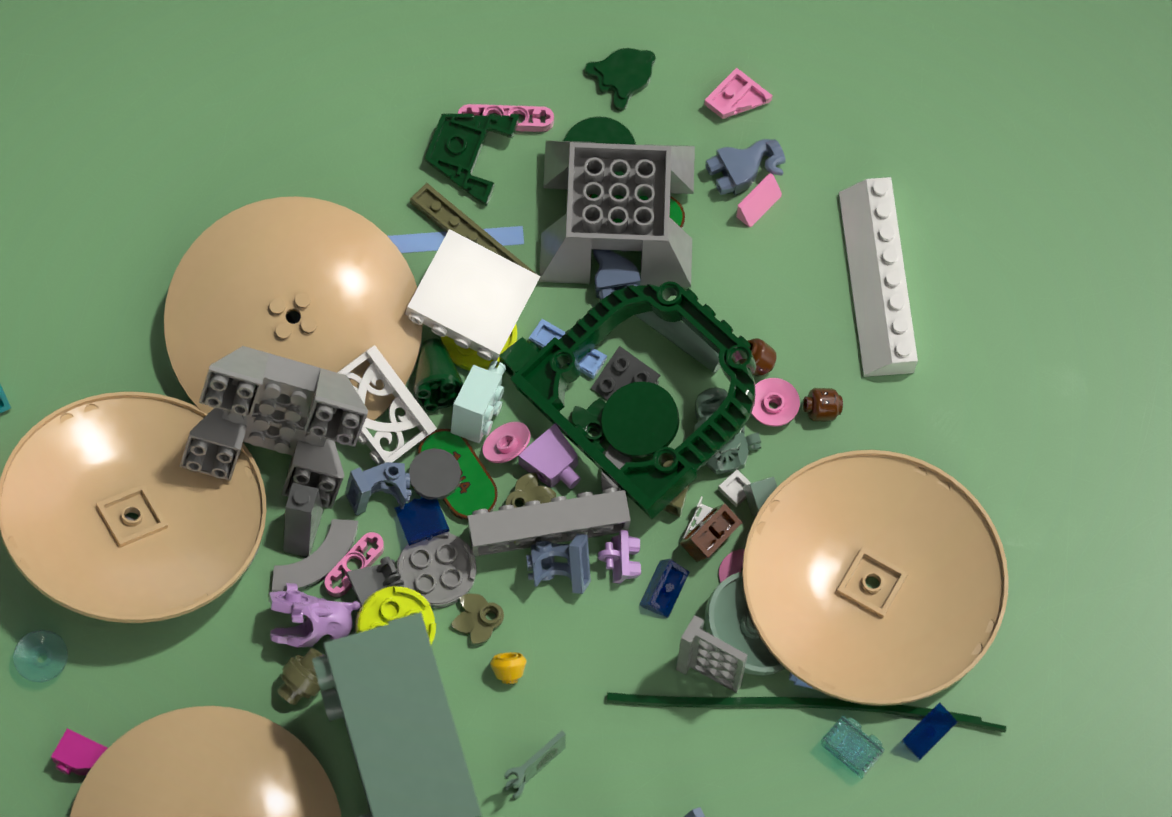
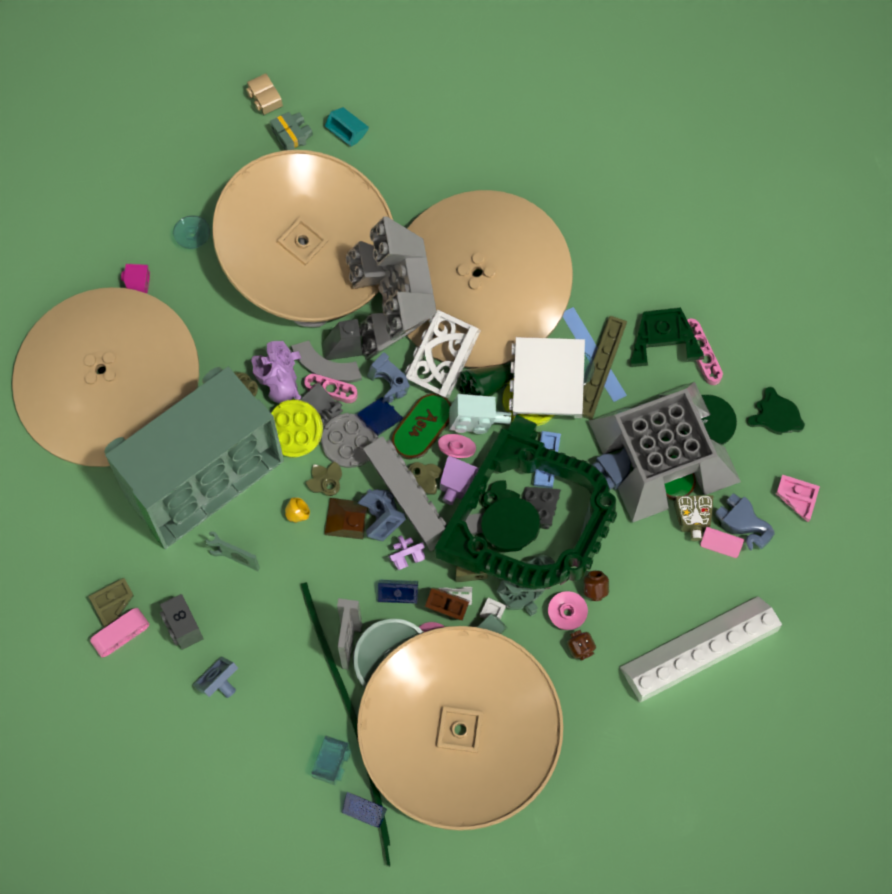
camera: 70 degrees right, 0 degrees up
(434, 474) = (413, 410): dark grey tile -> none
(543, 611) = (346, 519): none -> reddish brown slope
(713, 214) = (694, 514): none -> olive torso

